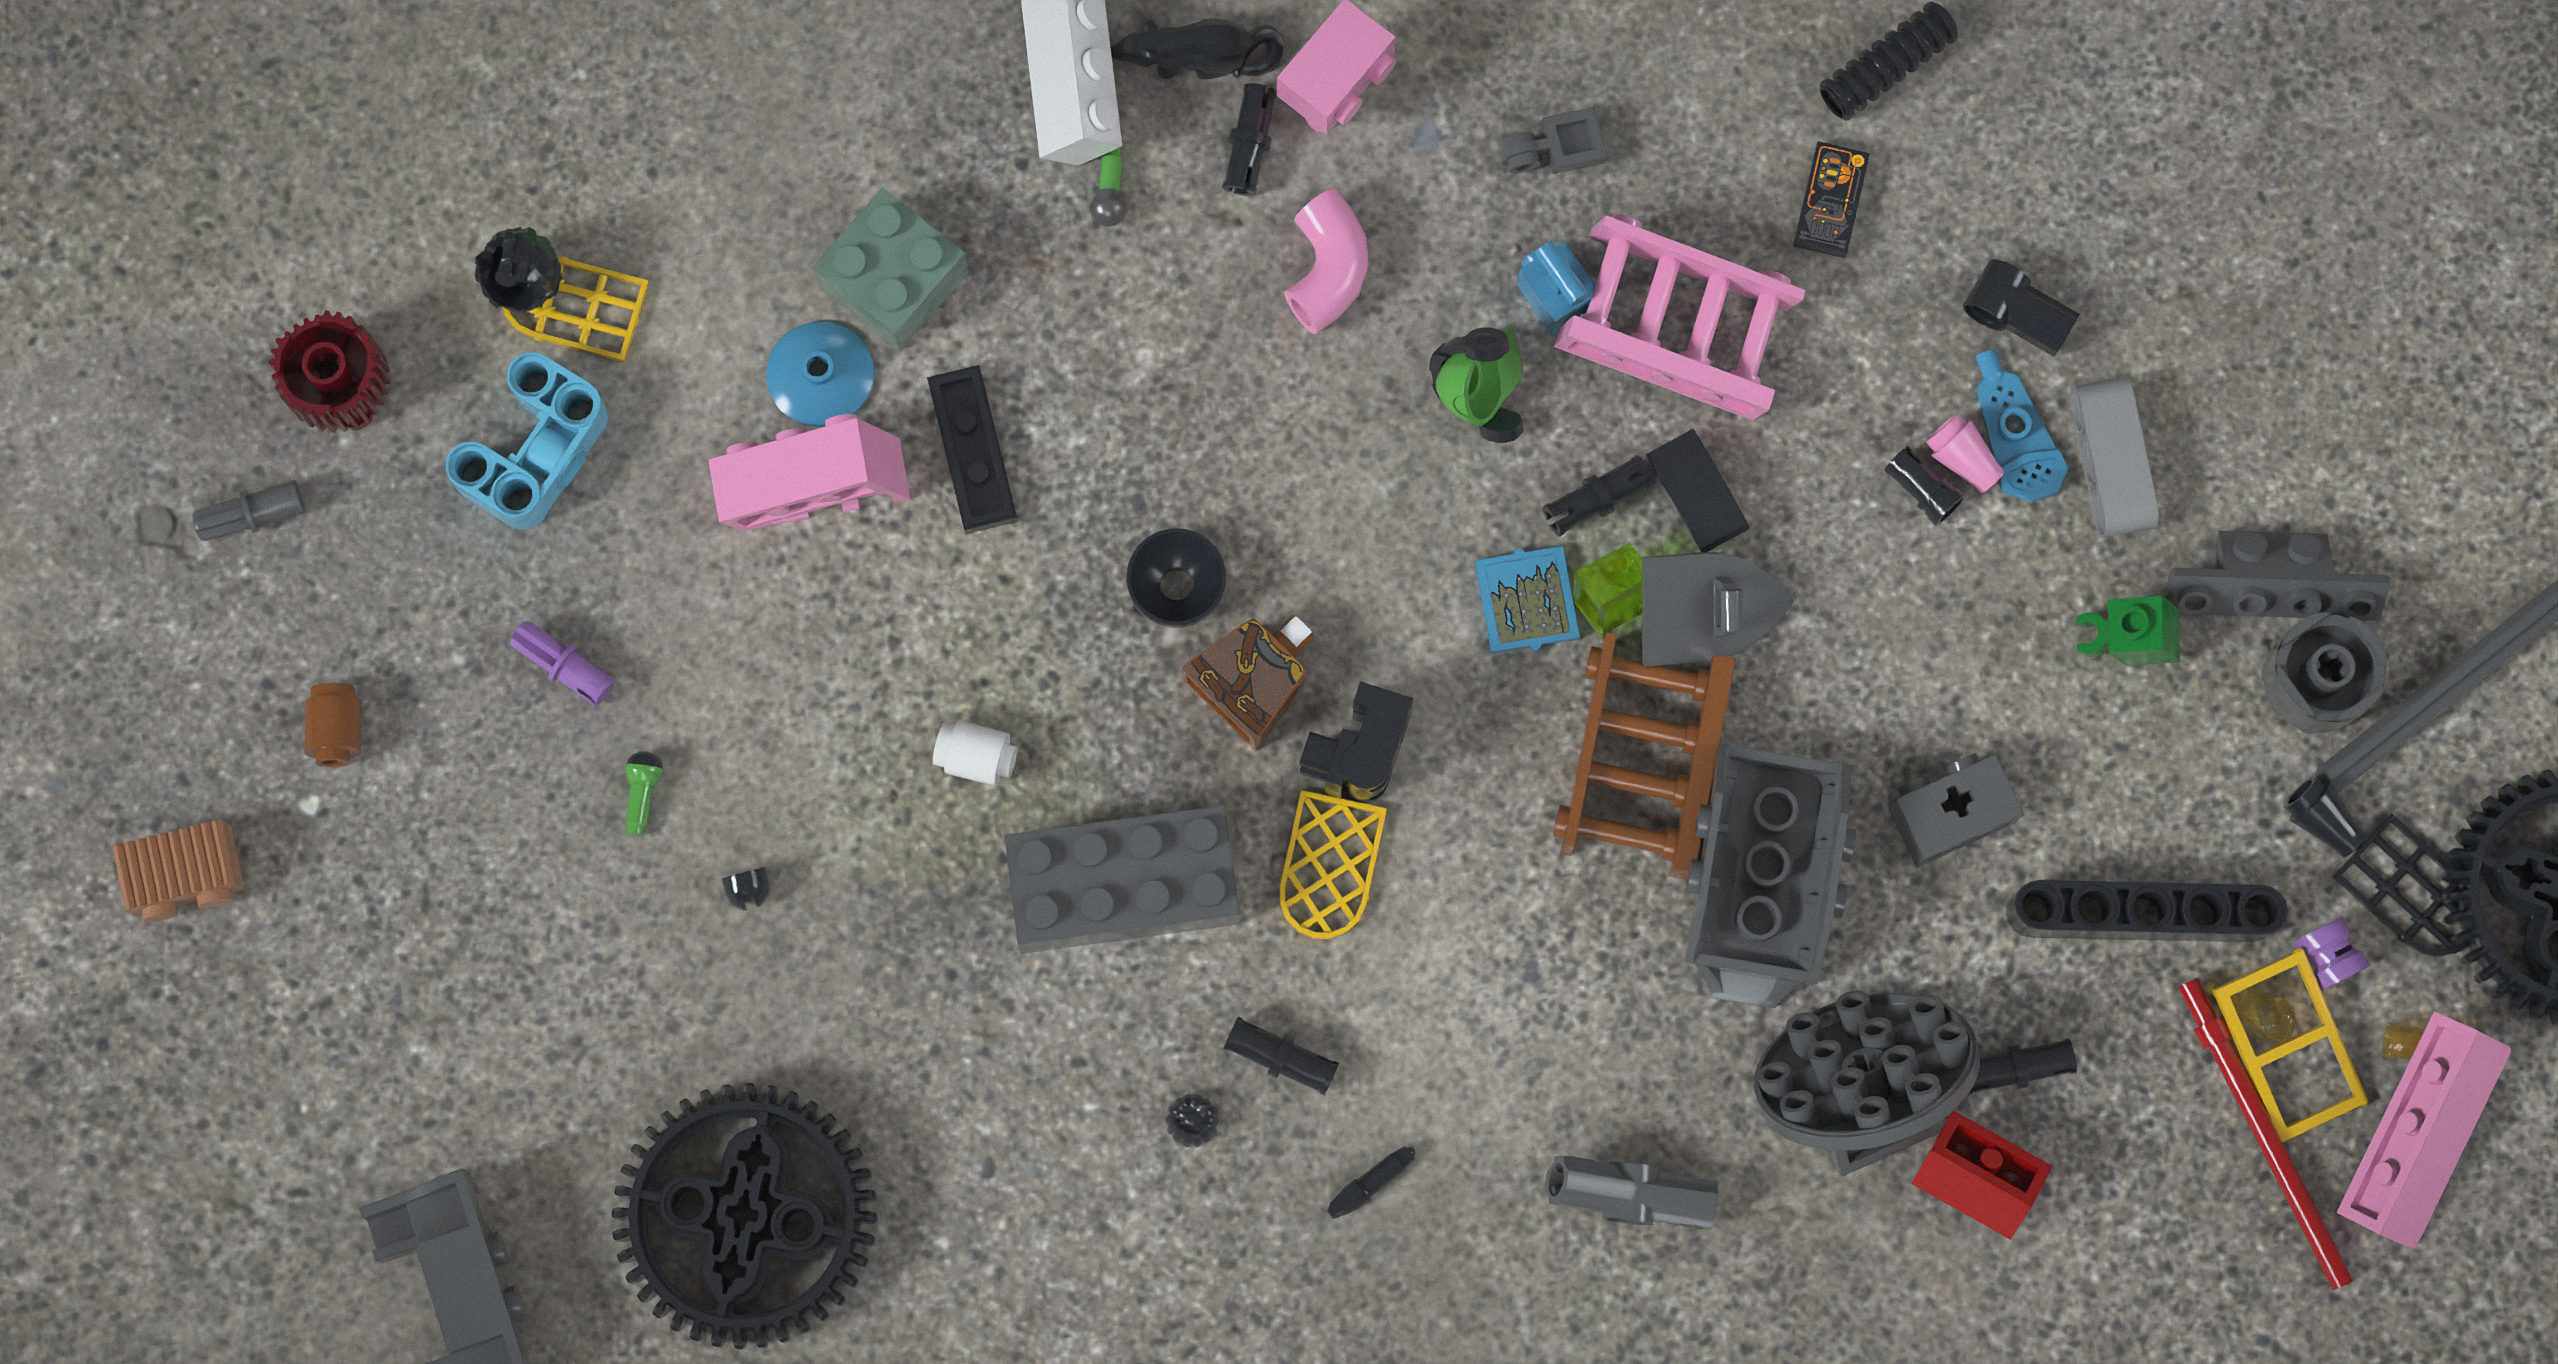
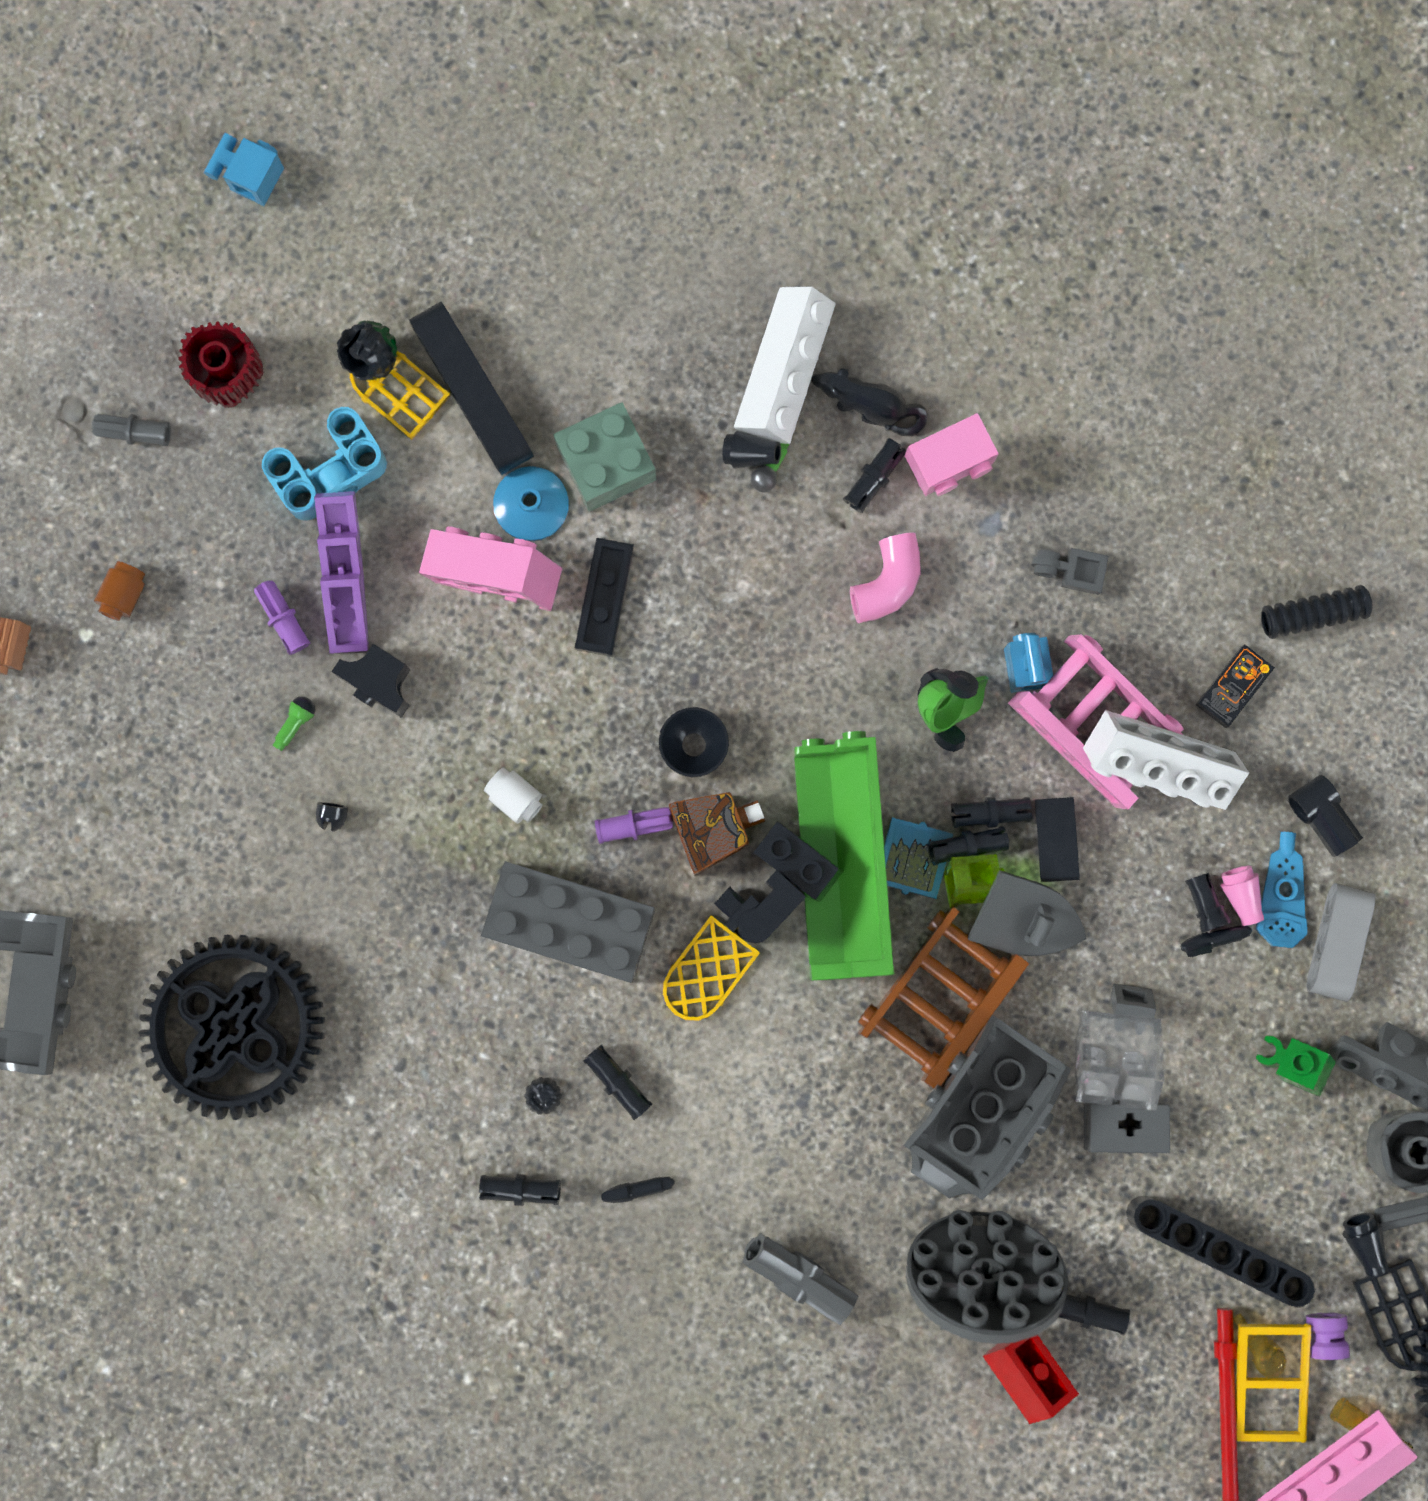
camera: 25 degrees right, 5 degrees up
(253, 111) = (249, 171): none -> dark azure brick
(616, 568) = (341, 572): none -> medium lavender slope
(674, 260) = (471, 388): none -> black beam
(724, 685) = (376, 679): none -> black brick
(1072, 179) = (747, 450): none -> black cone
(1148, 718) = (633, 824): none -> medium lavender axle
(1219, 1251) = (520, 1190): none -> black pin
(1383, 662) = (798, 861): none -> black brick
(1437, 636) = (844, 823): none -> bright green panel
(1587, 547) = (968, 845): none -> black pin
(1785, 327) = (1165, 760): none -> white brick
(1891, 652) = (1133, 1001): none -> dark grey tile
(1905, 726) = (1119, 1060): none -> clear piece
(1946, 534) = (1205, 942): none -> black piece

